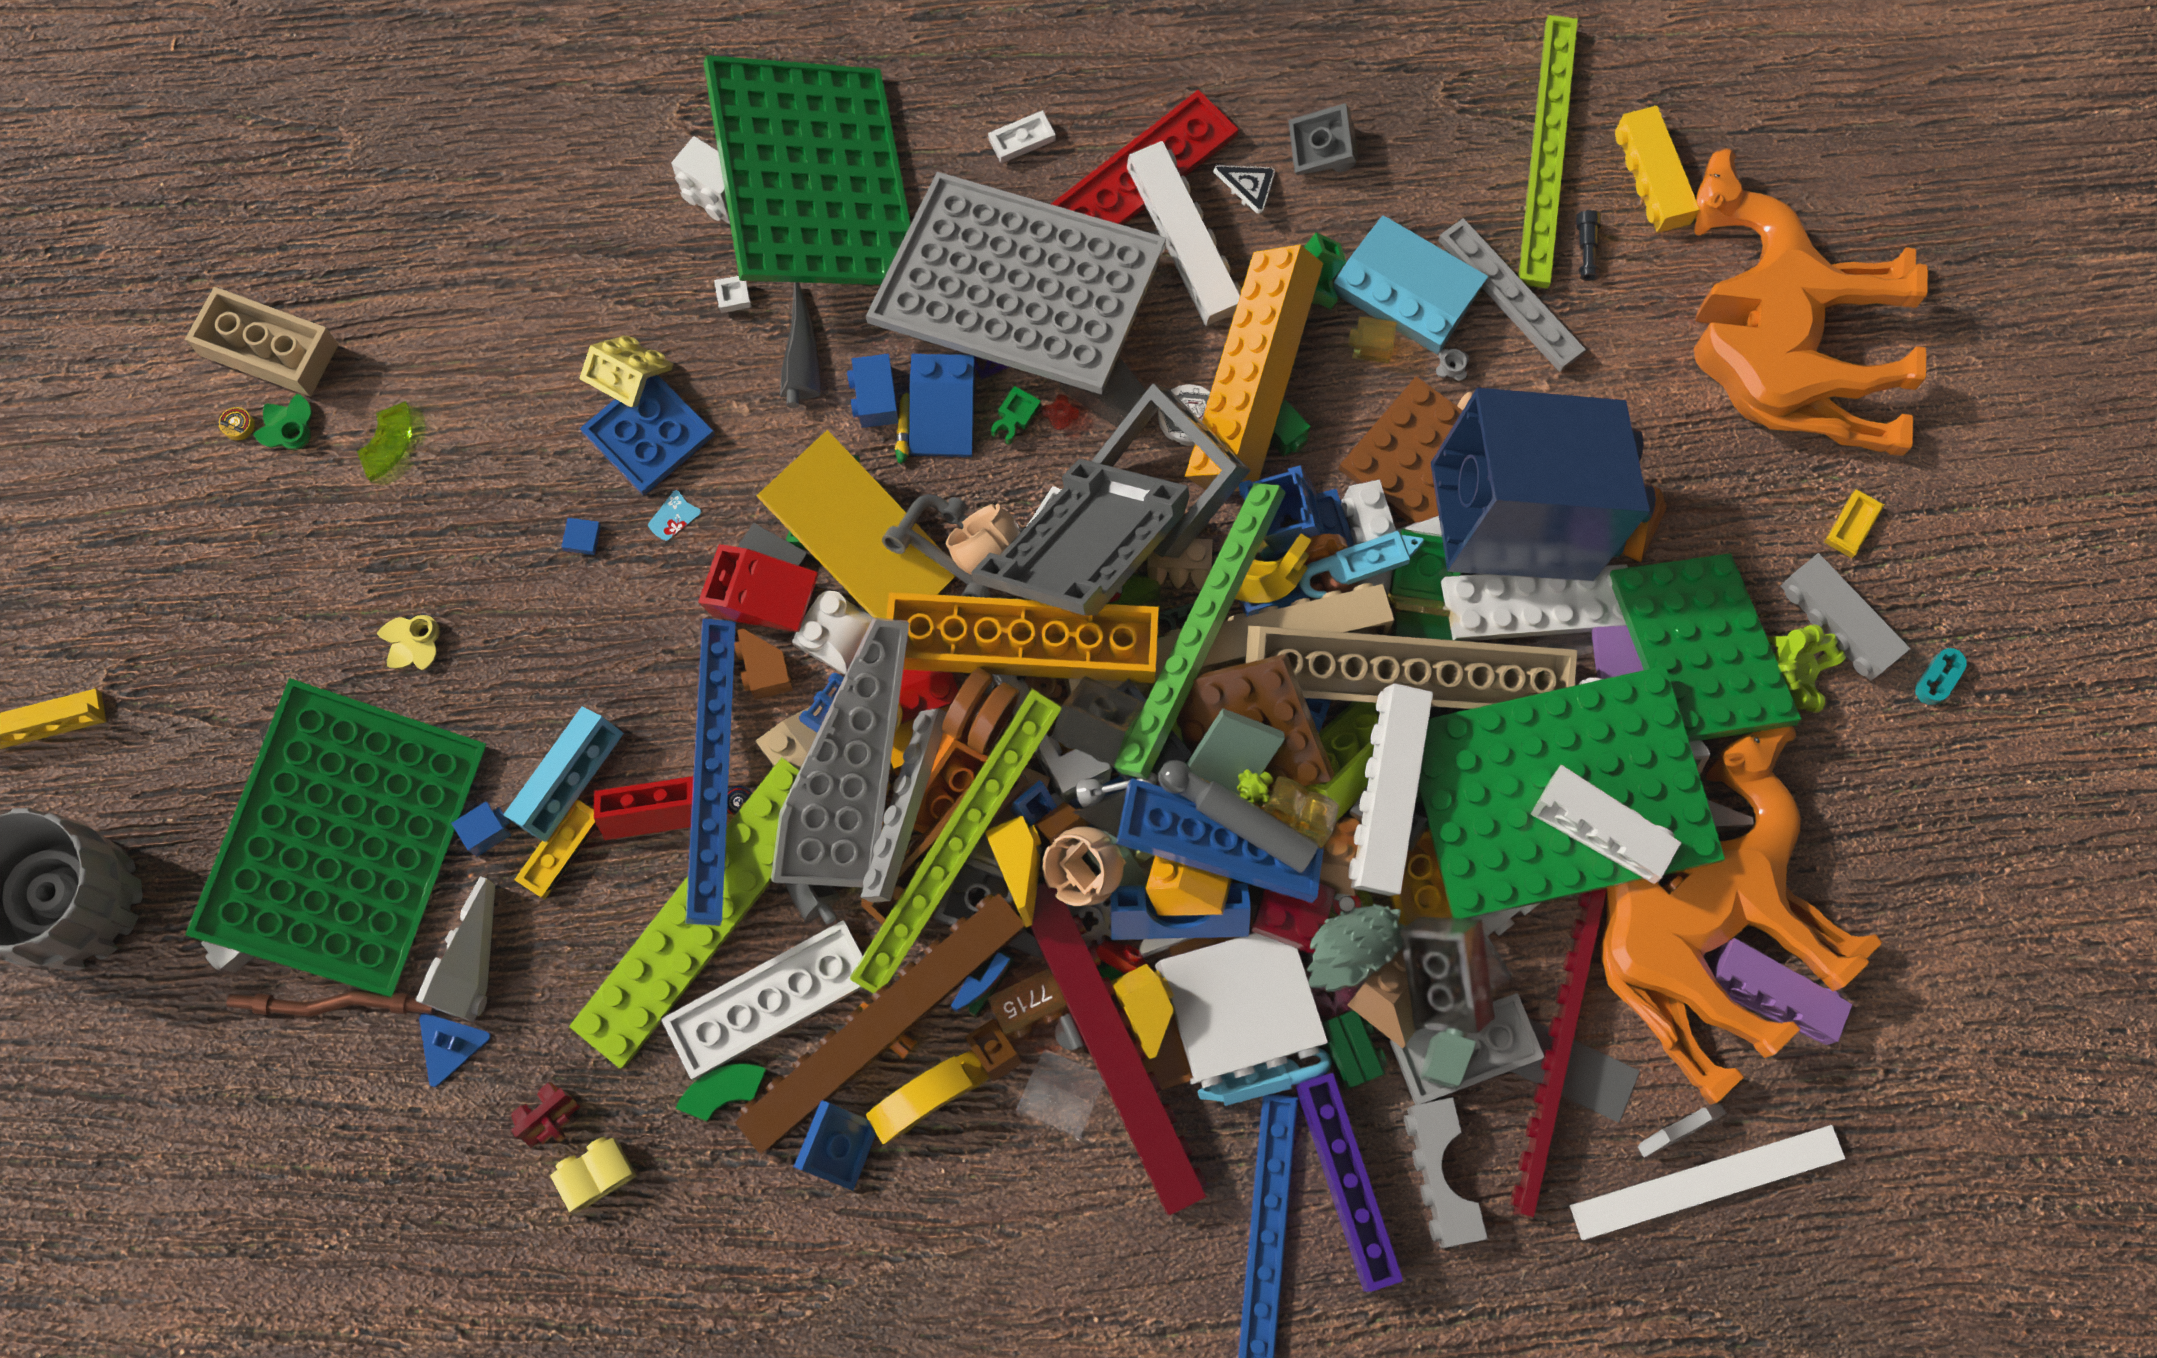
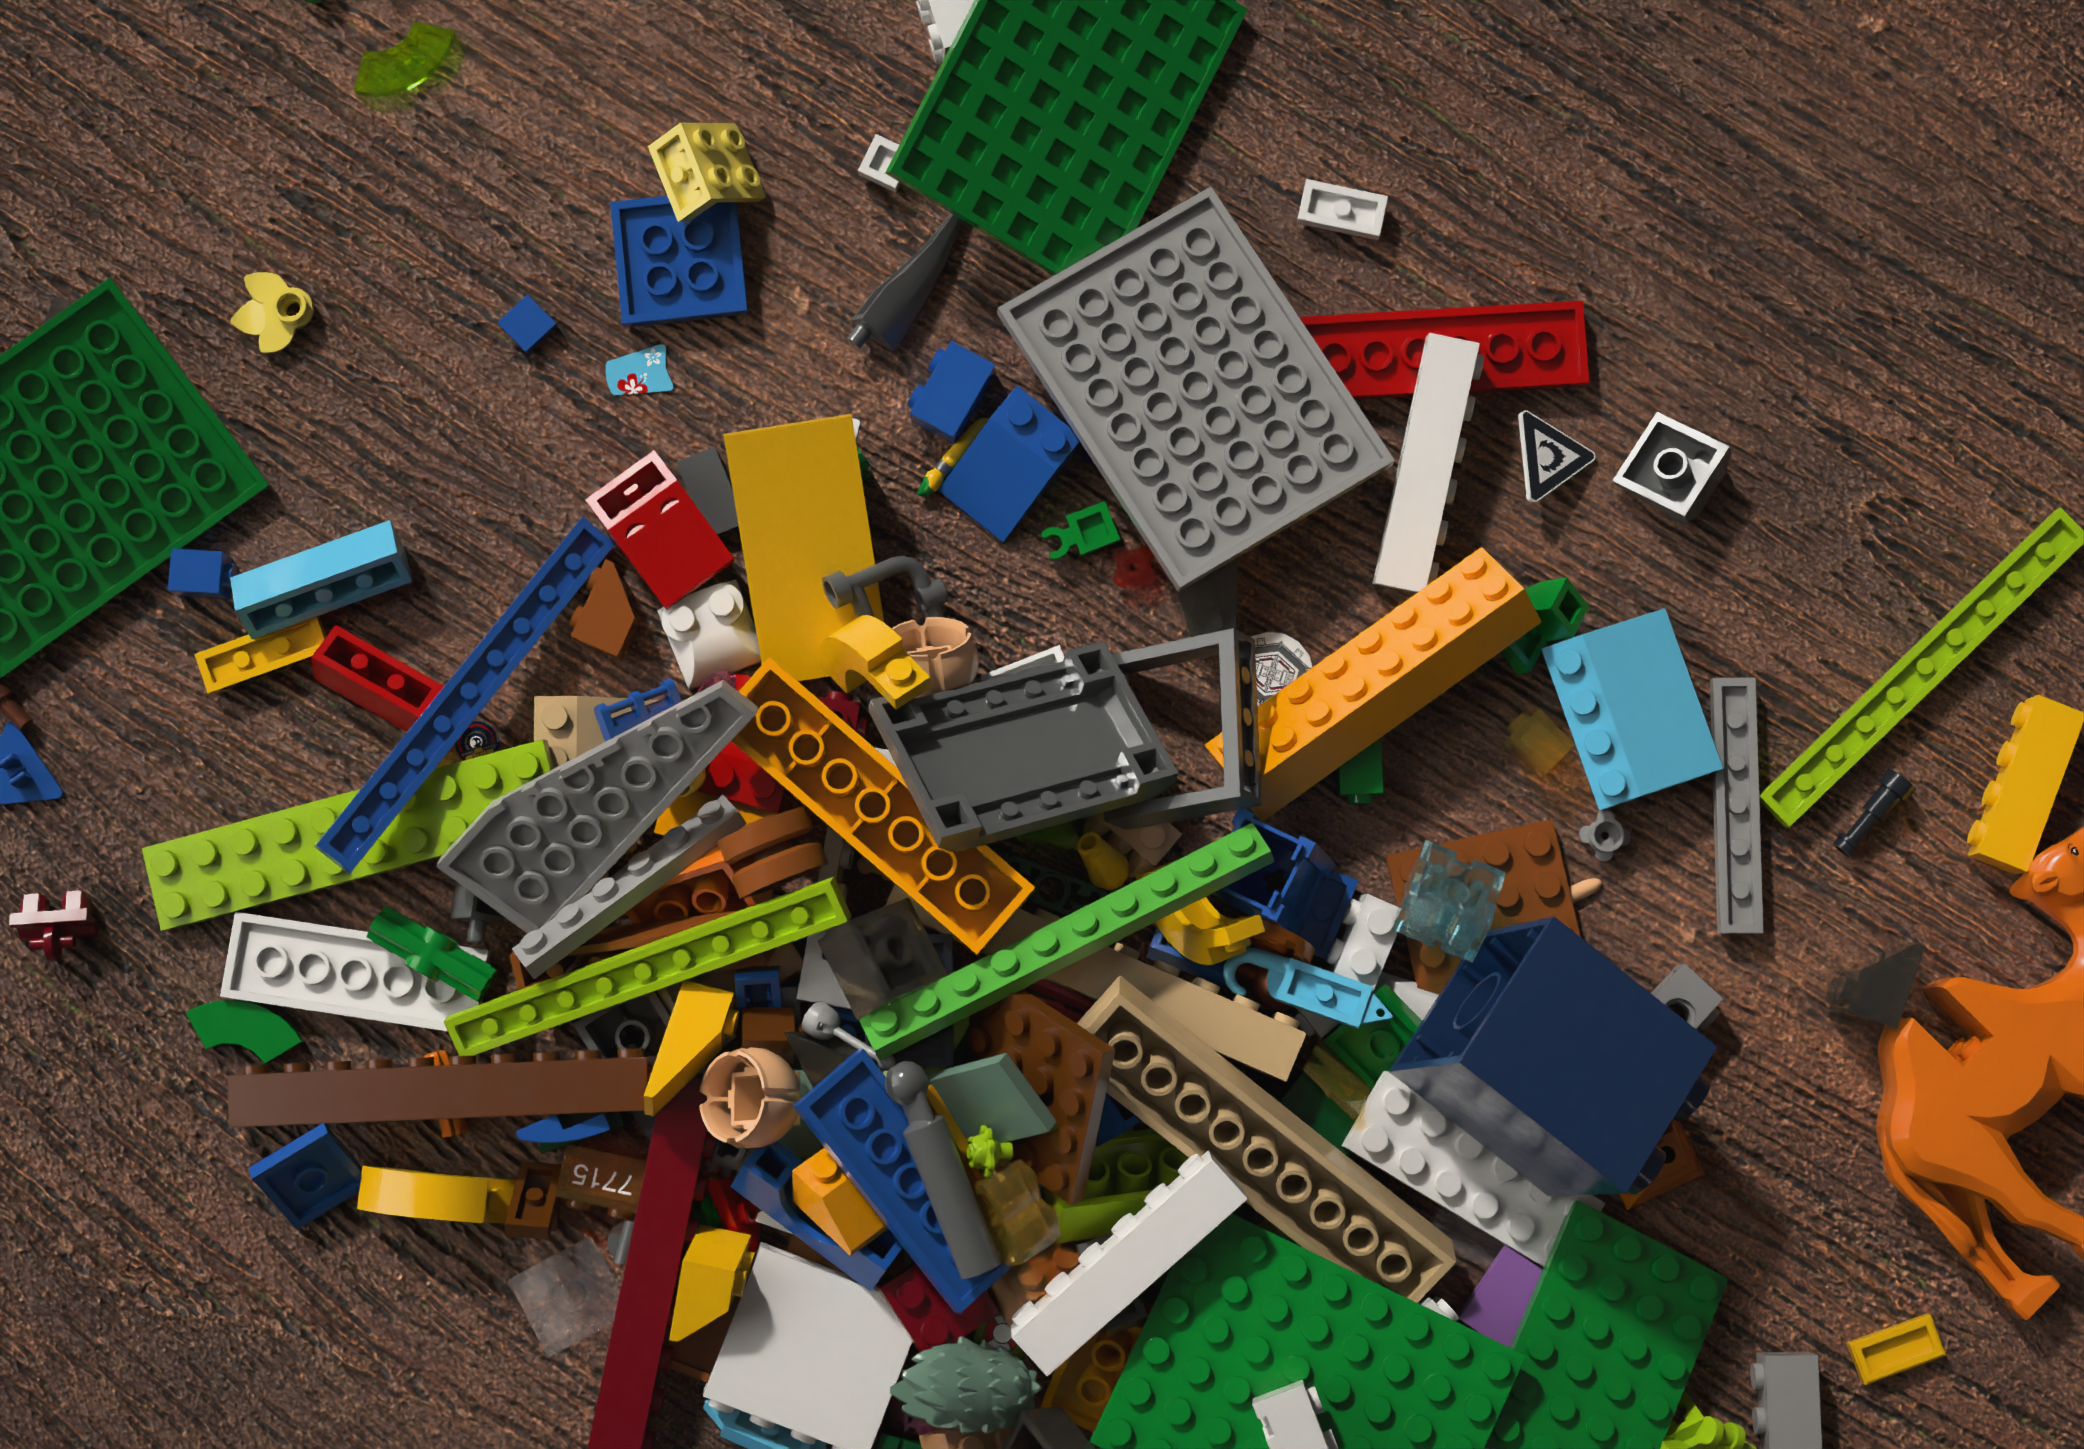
camera: 40 degrees right, 10 degrees up
(461, 977) = (70, 720): white wedge -> none
(593, 1174) = (57, 1017): light yellow brick -> none
(809, 945) = (432, 953): none -> green piece
(949, 547) = (873, 653): none -> yellow arch
(1179, 586) = (1103, 863): none -> yellow cone
(1401, 453) = (1448, 901): none -> clear light blue brick
(1676, 331) = (1875, 990): none -> clear smoke slope

